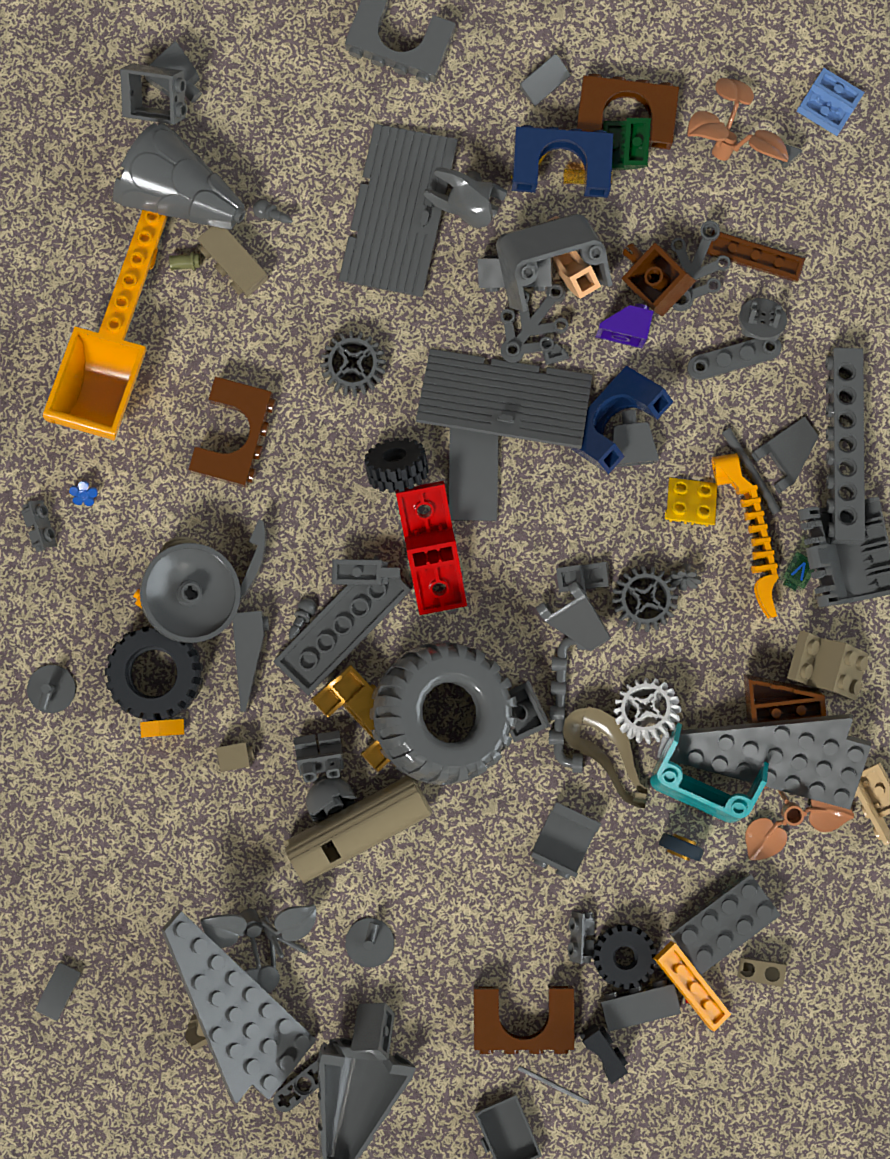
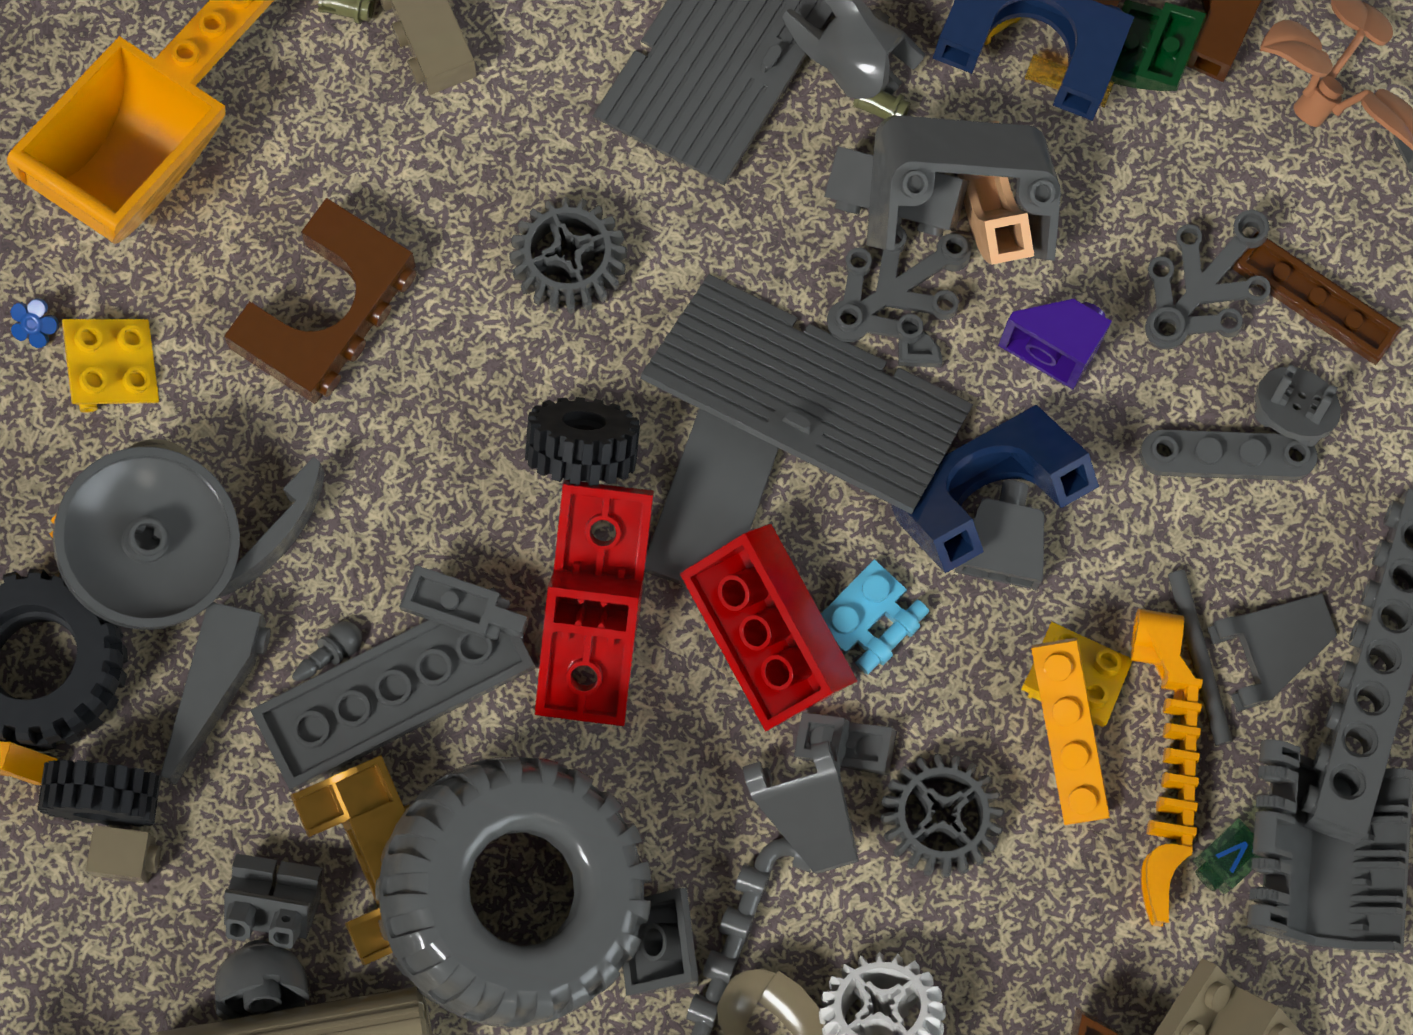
camera: 15 degrees right, 10 degrees down
(132, 502) = (109, 362): none -> yellow hinge
(213, 731) = (99, 793): none -> black tyre
(497, 224) = (884, 105): none -> olive pin
(525, 530) = (768, 626): none -> red slope
(568, 503) = (862, 606): none -> medium azure plate
(647, 270) = (1135, 274): reddish brown brick -> none
(685, 577) = (1025, 801): dark grey plant -> none
(697, 534) = (1070, 731): none -> light orange plate

